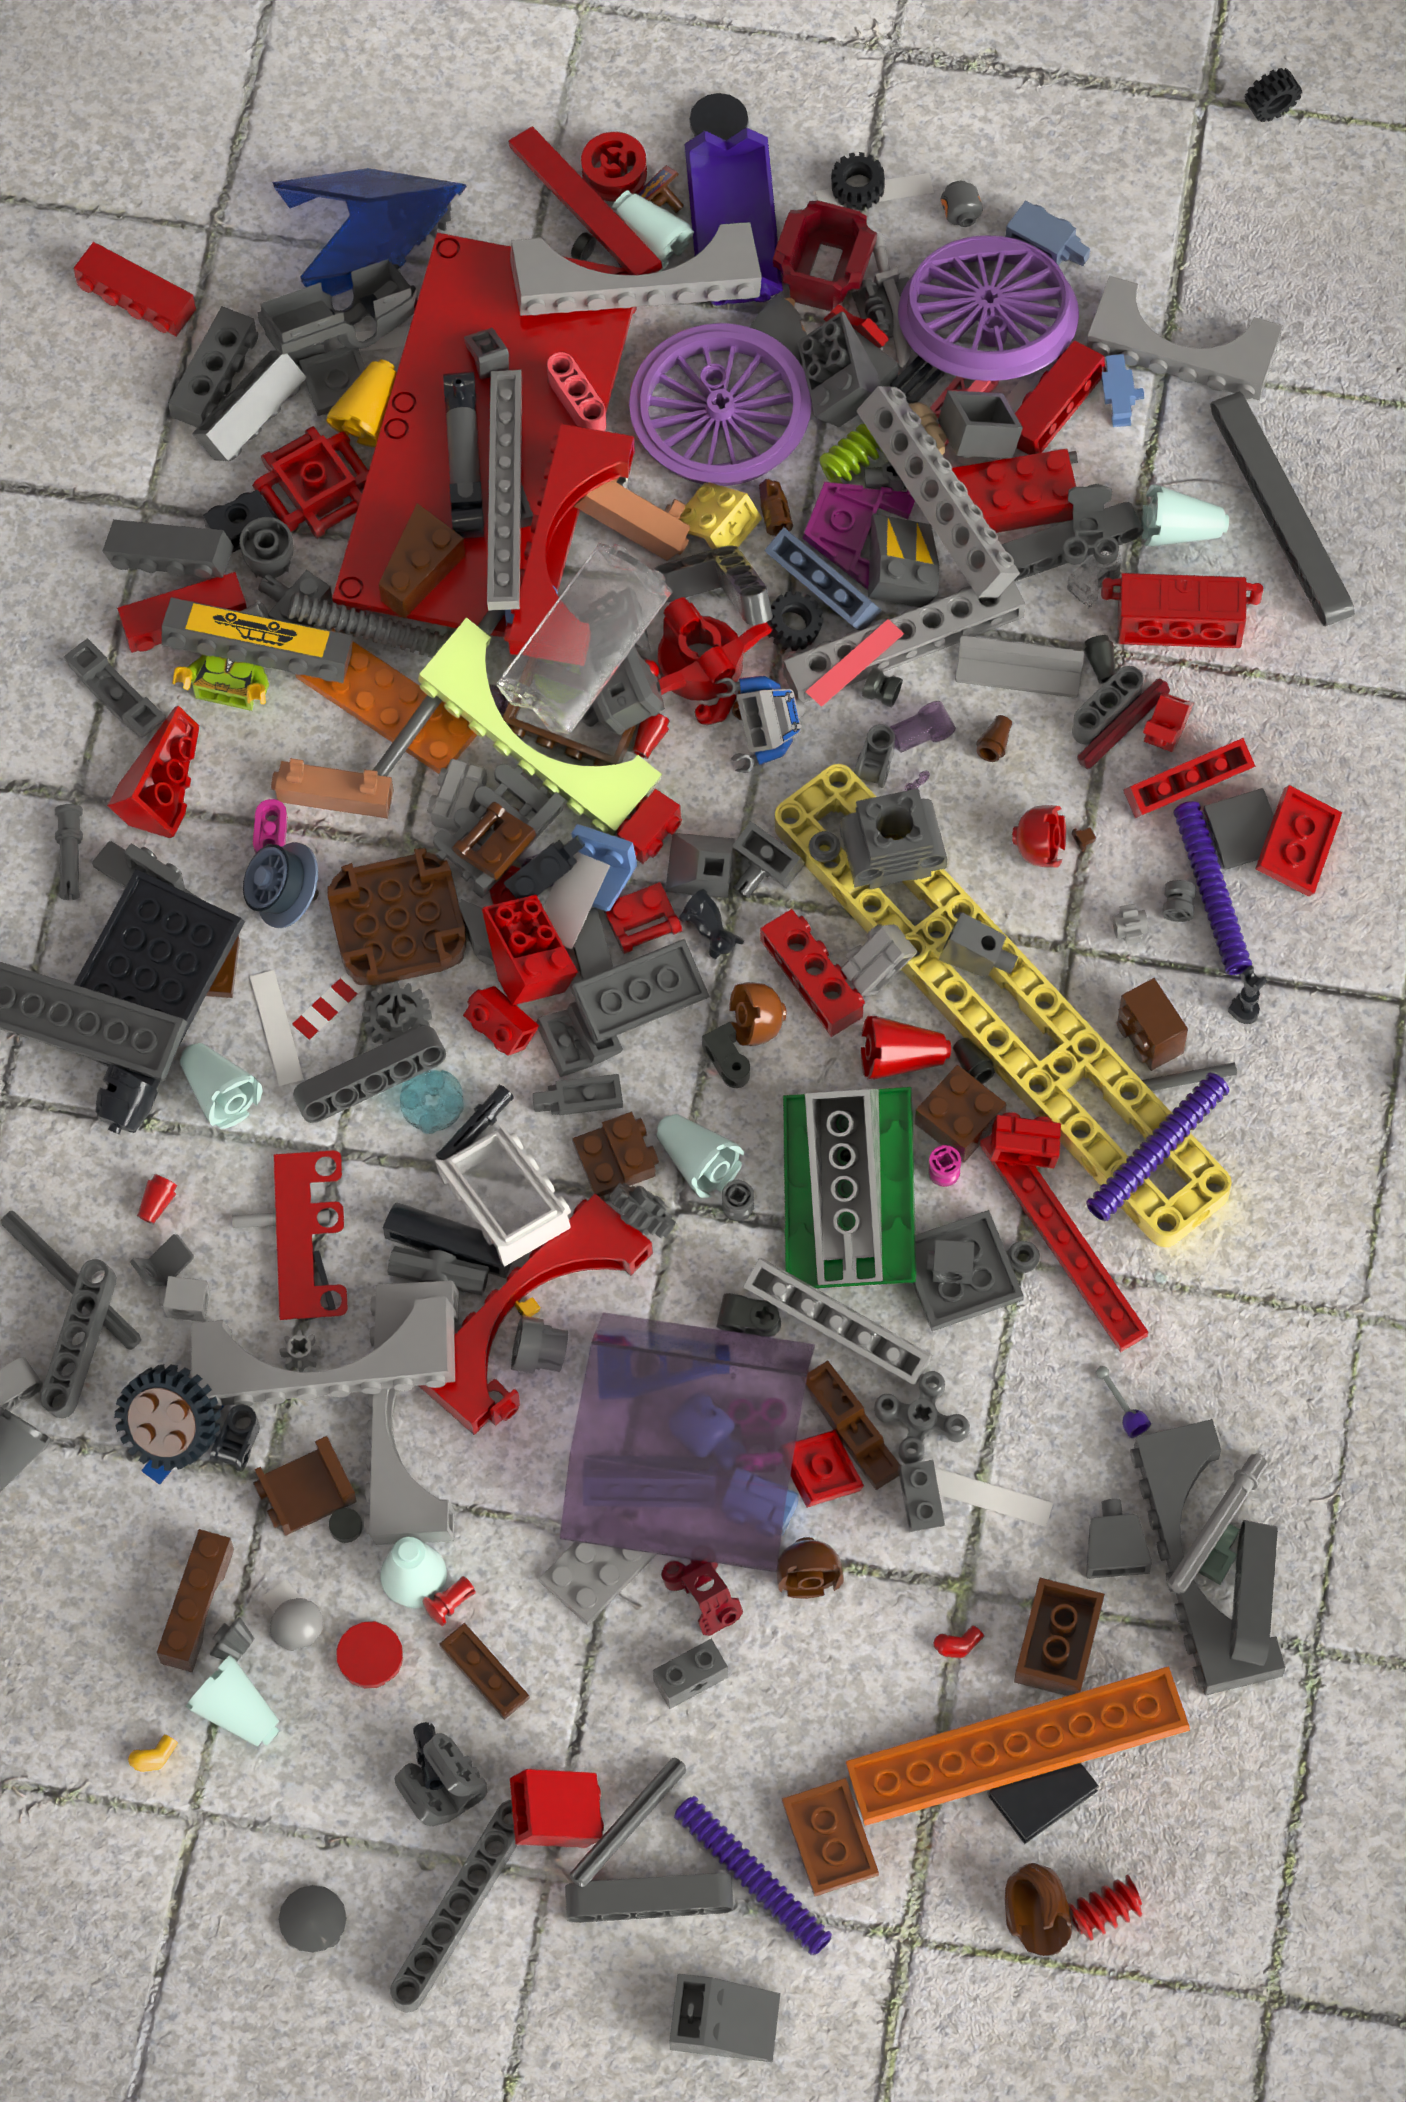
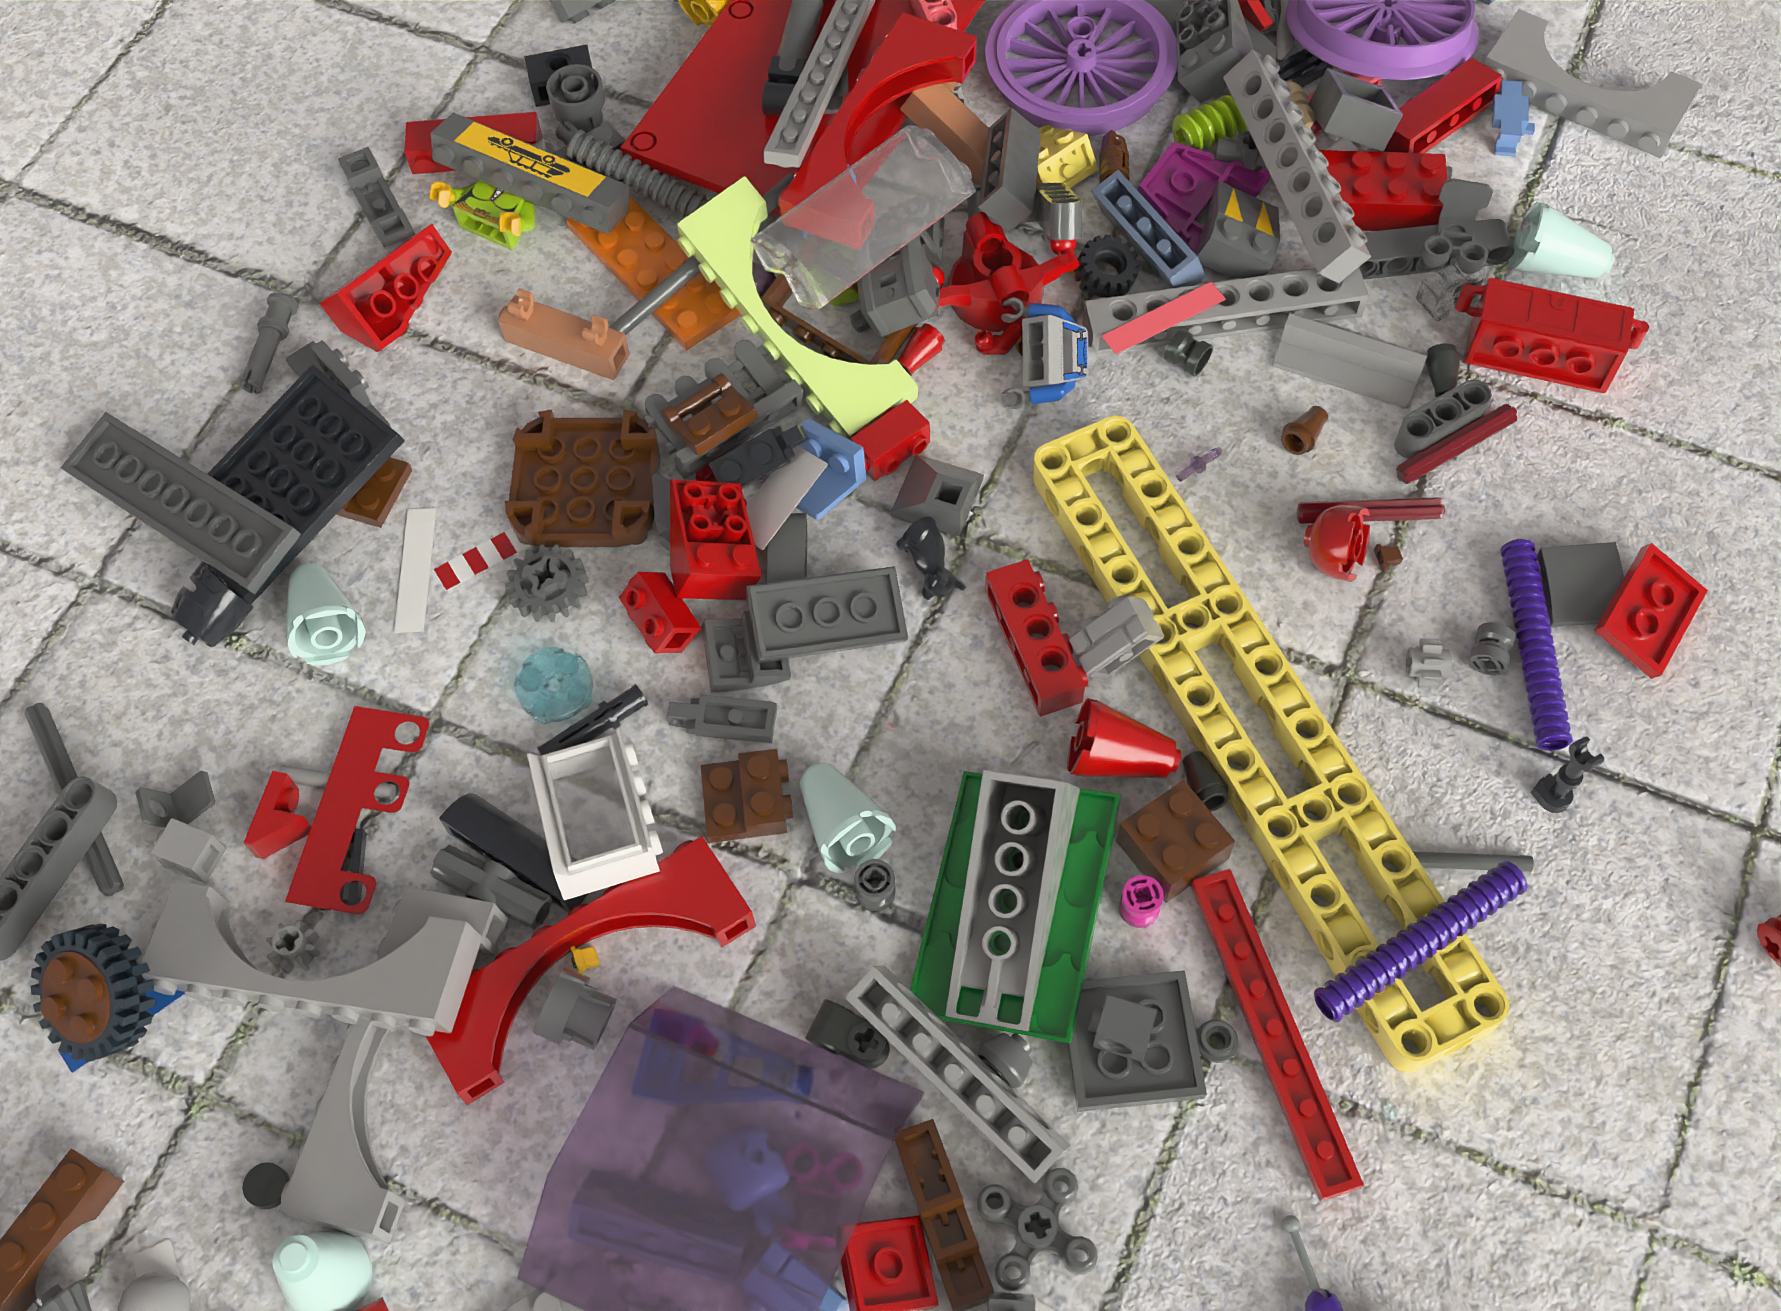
camera: 15 degrees right, 5 degrees down
(156, 1198) = (204, 725): red cone -> none
(168, 548) = (478, 79): dark grey brick -> none
(235, 1444) = (175, 1039): black piece -> none
(248, 1263) = (273, 824): none -> red slope
(270, 831) = (480, 366): dark pink plate -> none
(281, 883) = (466, 413): sand blue piece -> none
(305, 1488) = (232, 1125): reddish brown panel -> none
(313, 480) = (646, 50): red brick -> none
(369, 1074) = (490, 639): dark grey beam -> none
(419, 561) = (718, 124): reddish brown wedge -> none
(456, 792) = (690, 361): light grey brick -> none
(507, 1406) = (514, 1078): red bracket -> none
(639, 909) = (856, 528): red plate -> none
(642, 1210) = (752, 870): dark grey gear -> none
(691, 553) = (1010, 170): none -> dark grey brick
(731, 1065) = (911, 721): pearl dark grey leg -> none
(757, 1013) = (958, 668): dark orange cylinder -> none
(766, 859) = (1012, 500): dark grey brick -> none
(828, 839) = (1082, 489): dark grey plate -> none
(871, 1303) = (1007, 1057): none -> dark grey cone
(875, 761) = (1162, 424): dark grey piece -> none
(885, 861) = (1164, 501): dark grey piece -> none
(929, 724) = (1234, 399): clear purple piece -> none
(976, 948) = (1237, 645): dark grey torso -> none
(1025, 1140) = (1250, 893): red brick -> none
(1066, 799) = (1379, 509): none -> dark red axle
(1151, 1024) = (1437, 785): reddish brown brick -> none
(1167, 722) = (1510, 450): red brick -> none
(1189, 778) = (1528, 513): red brick -> none
(1282, 509) = (1677, 265): dark grey beam -> none

